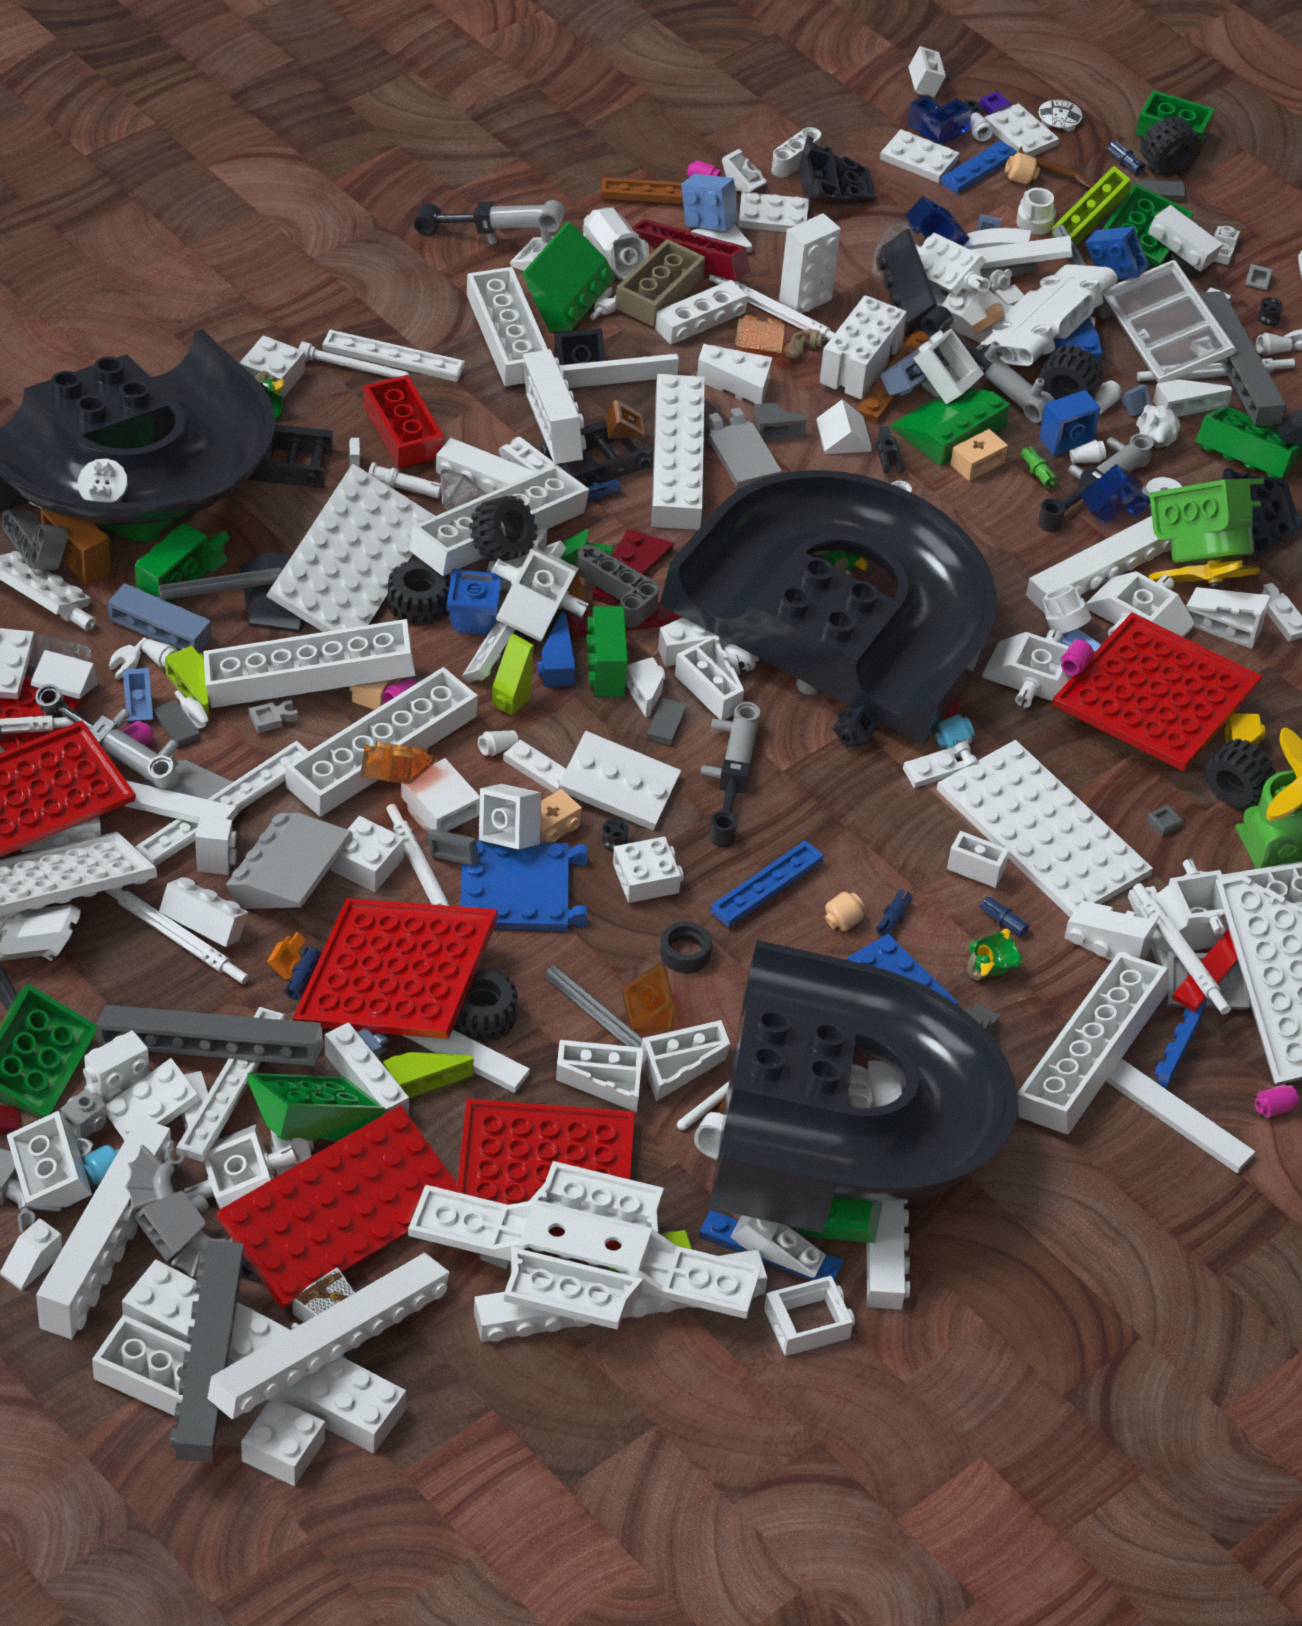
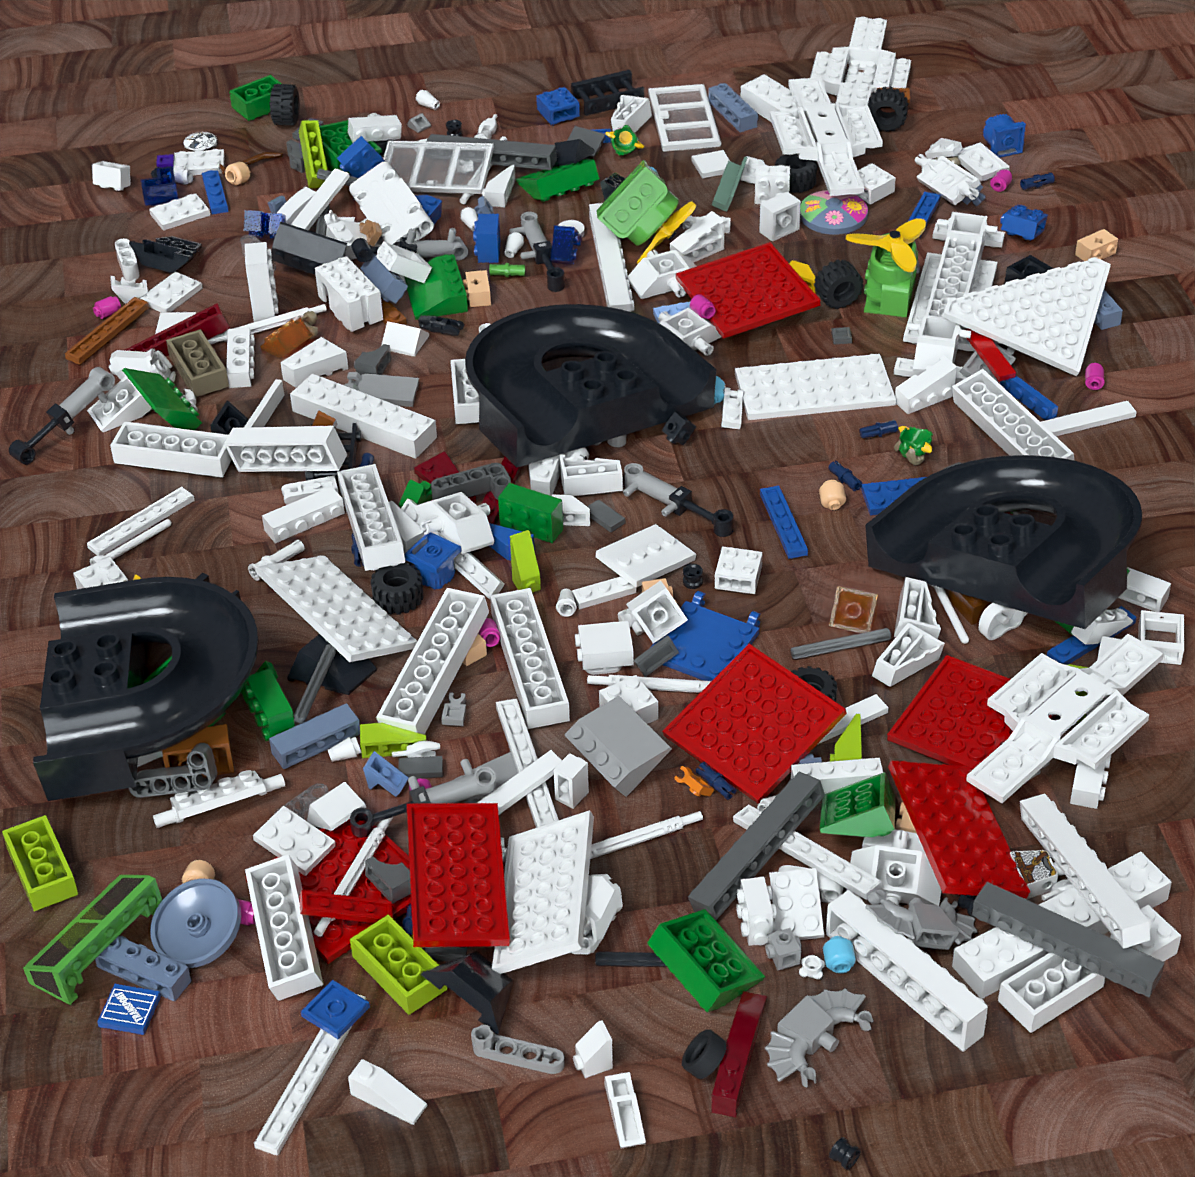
camera: 55 degrees left, 5 degrees down
(32, 1254) = (899, 1027): white slope -> none
(49, 1163) = (829, 978): white slope -> none
(103, 471) = (193, 702): white plate -> none
(128, 656) = (333, 769): white hand -> none
(203, 911) = (628, 811): white brick -> none
(354, 452) = (229, 574): white tile -> none
(395, 762) = (573, 649): clear orange slope -> none
(402, 421) = (221, 535): red brick -> none
(457, 489) = (313, 532): clear slope -> none
(517, 523) = (402, 506): black tyre -> none
(685, 931) = (815, 590): black tyre -> none
(709, 202) = (148, 308): medium blue brick -> none
(952, 265) = (323, 220): white plate -> none
(978, 859) = (830, 418): white brick -> none
(1036, 211) = (283, 181): white piece -> none
(1065, 609) = (649, 301): white piece -> none
(1070, 372) = (452, 214): black tyre -> none
(1126, 157) = (266, 130): dark blue axle -> none
(1159, 424) = (516, 205): white animal -> none
(1182, 949) = (971, 357): white axle -> none

